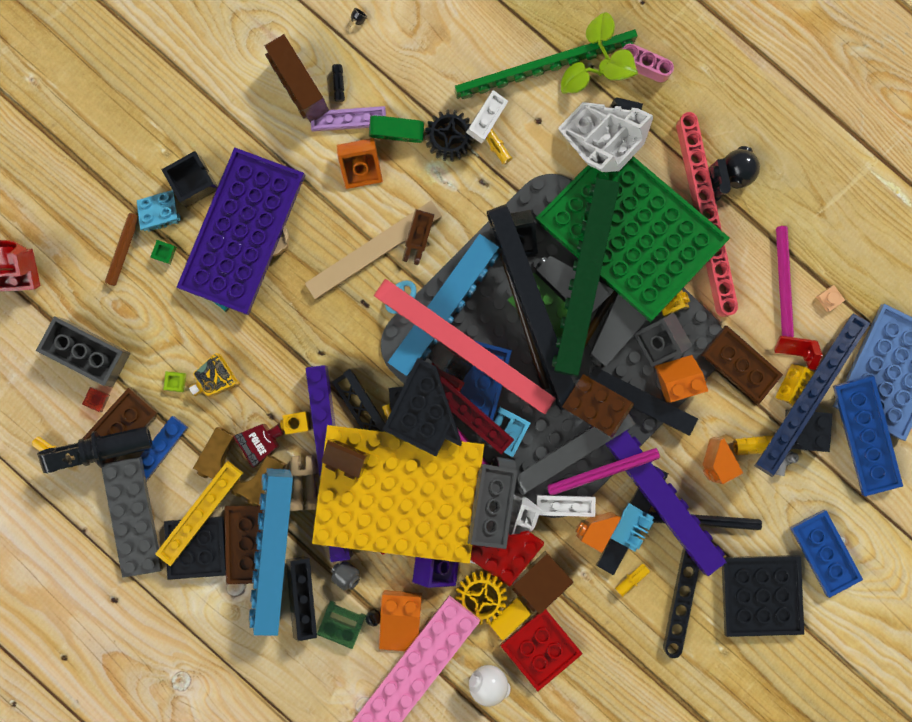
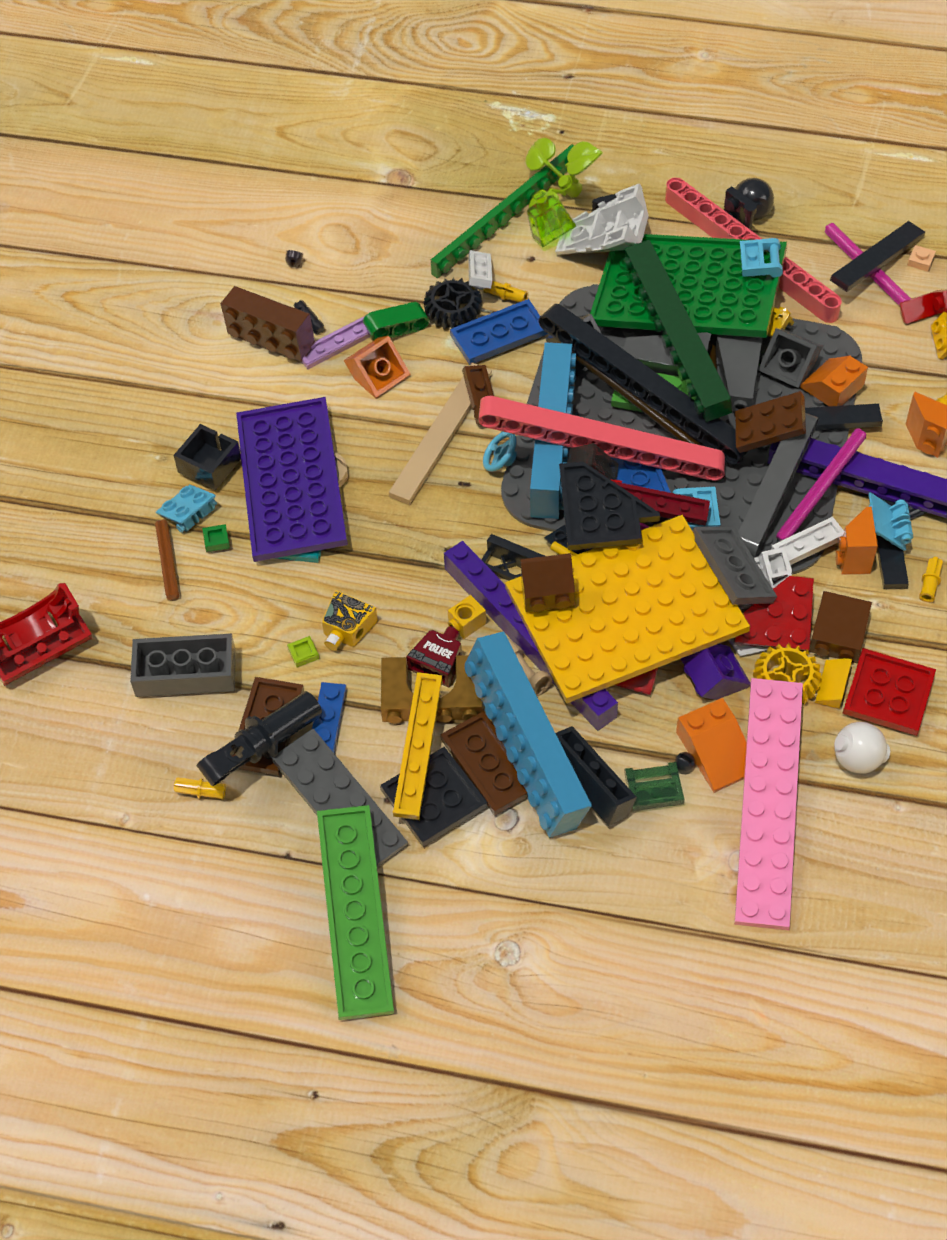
camera: 25 degrees left, 30 degrees down
(95, 605) = (354, 913): none -> bright green plate
(96, 399) = (223, 709): clear red plate -> none
(345, 575) = (623, 732): dark grey head -> none
(468, 182) = (498, 332): none -> blue plate
(568, 99) = (548, 219): none -> clear neon green torso
(655, 61) = (607, 167): bright pink beam -> none
(690, 243) = (753, 257): none -> medium azure plate
(742, 364) = (883, 345): reddish brown tile -> none
(796, 282) = (877, 256): none -> black tile

